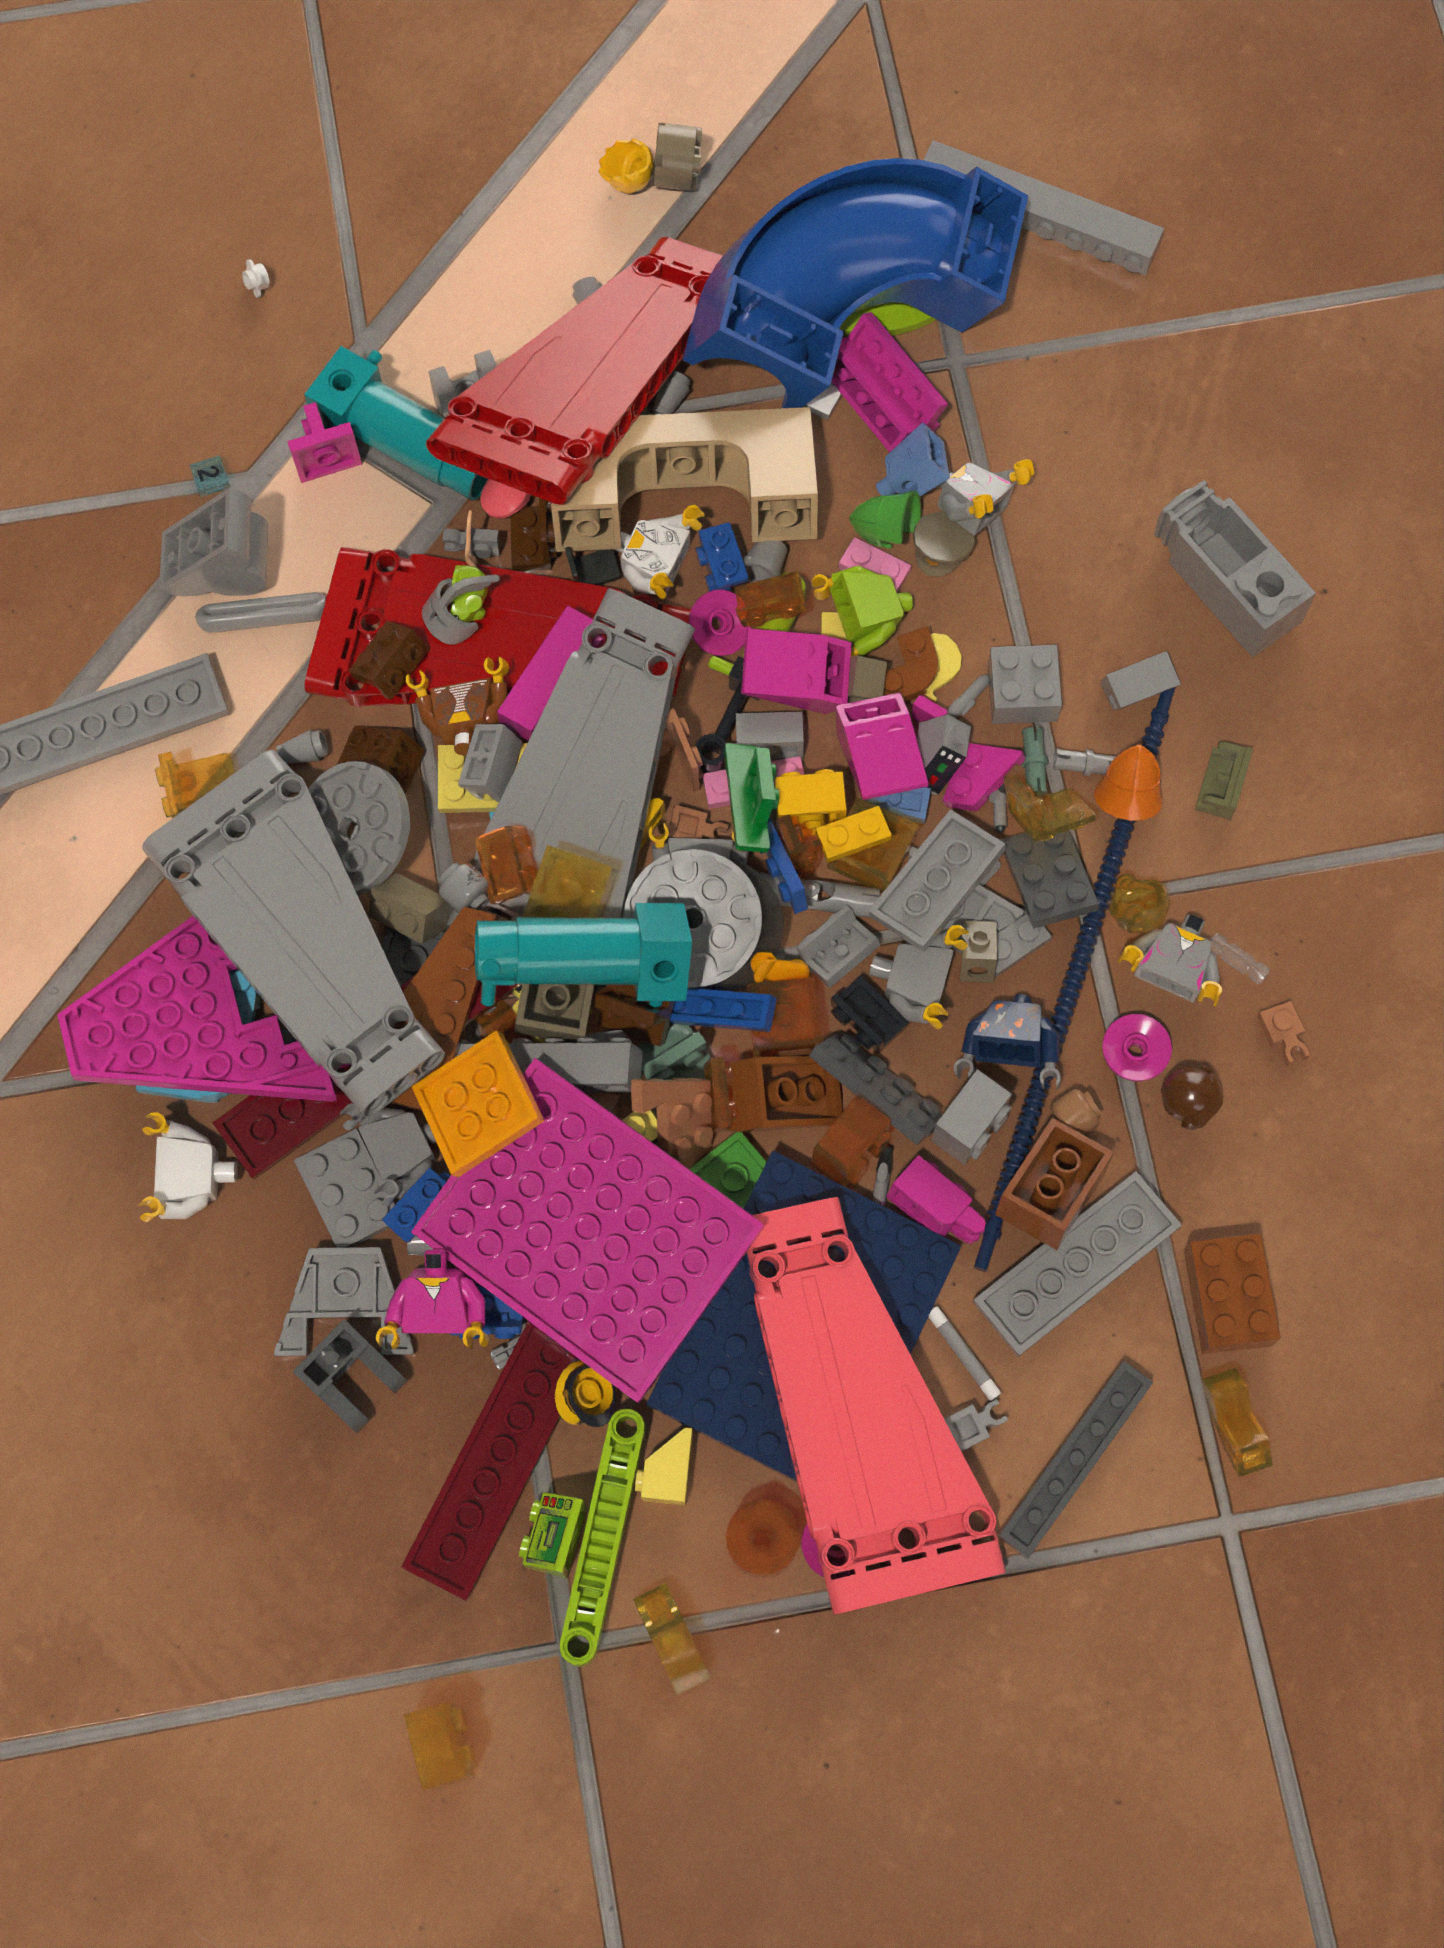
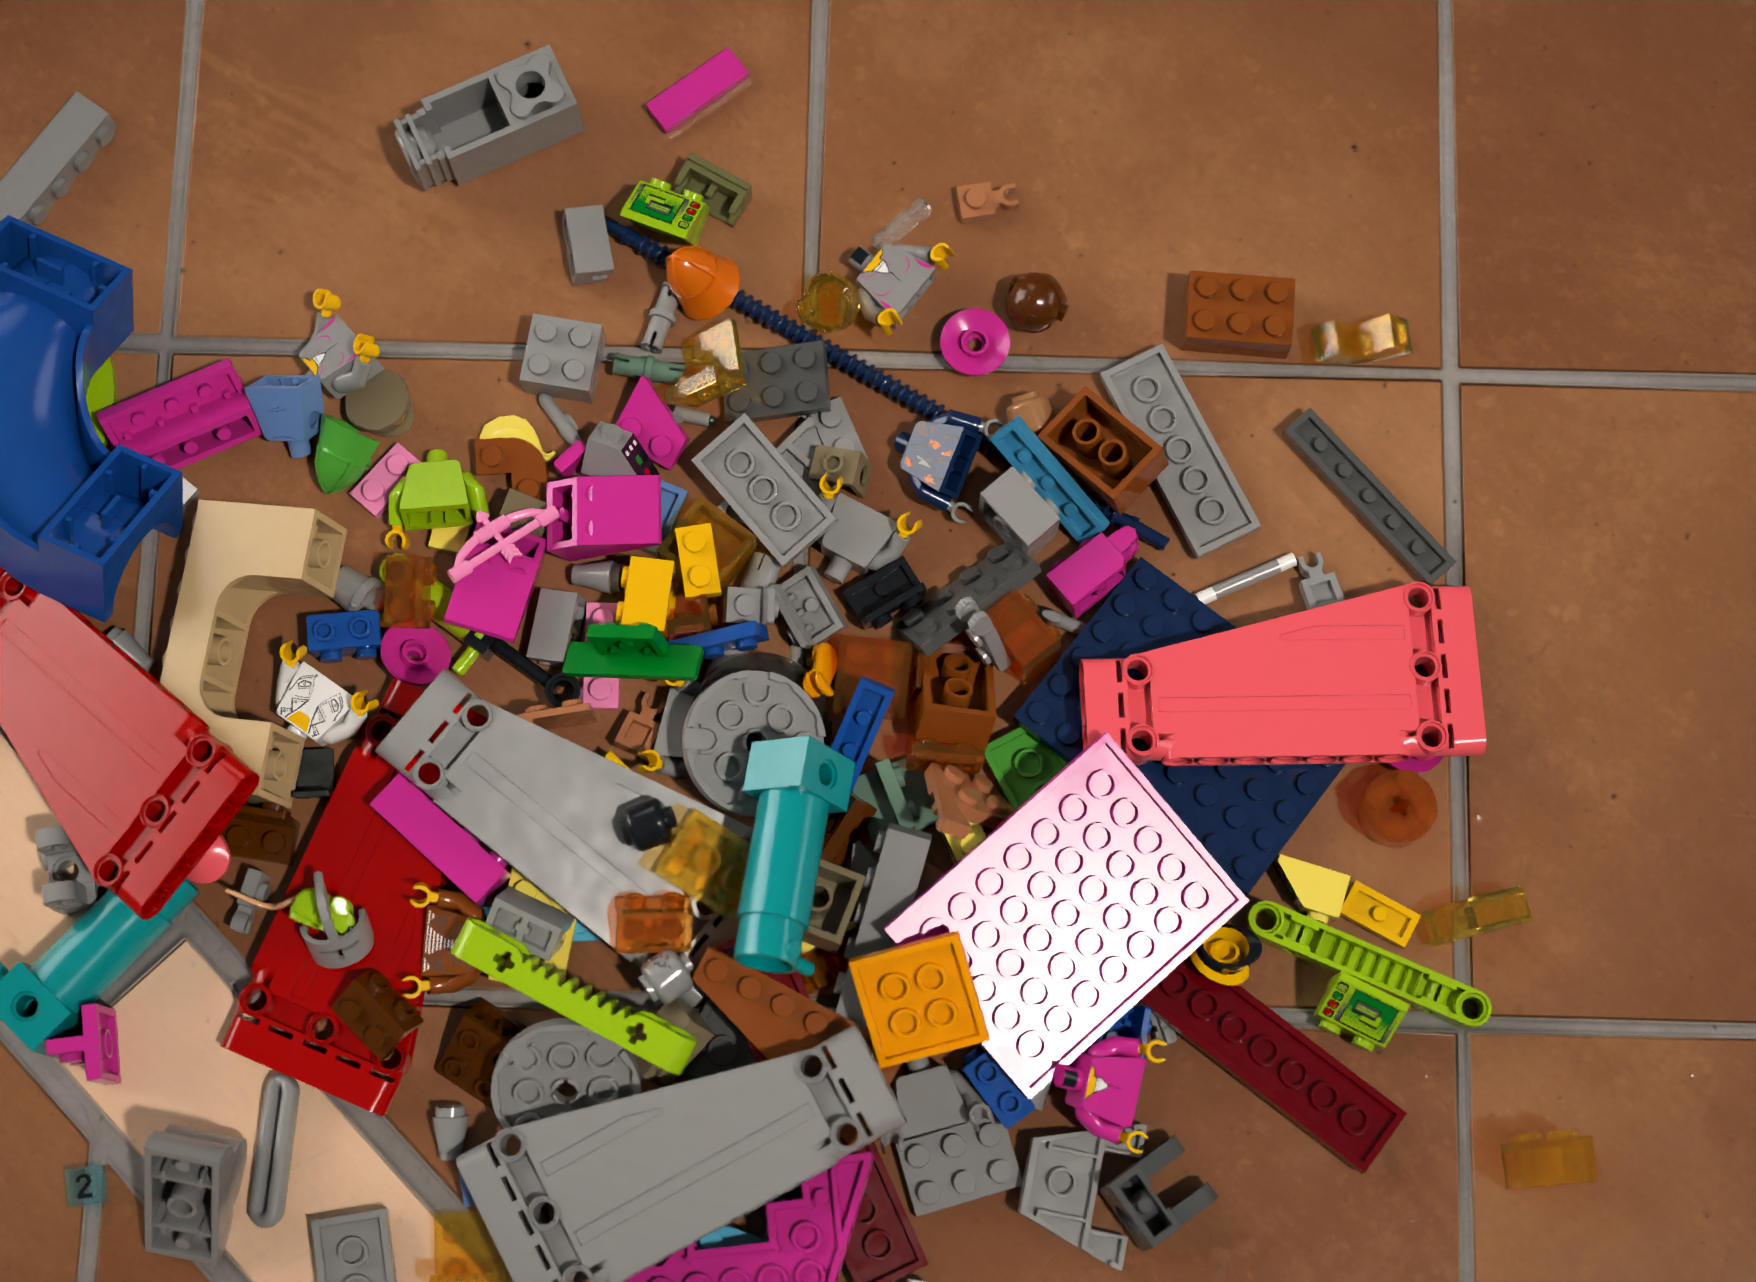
camera: 80 degrees left, 5 degrees up
(453, 732) = (483, 949): none -> lime gear
(593, 835) = (648, 824): none -> black head
(655, 1541) = (1379, 914): none -> yellow plate
(823, 890) = (749, 605): none -> light grey bracket
(826, 755) = (599, 576): none -> light grey cone
(827, 664) = (505, 545): none -> bright pink piece
(843, 1091) = (983, 634): none -> light grey hinge
(1012, 1139) = (1030, 455): none -> dark azure plate
(1188, 740) = (666, 212): none -> lime slope
(1321, 747) = (697, 90): none -> dark pink tile

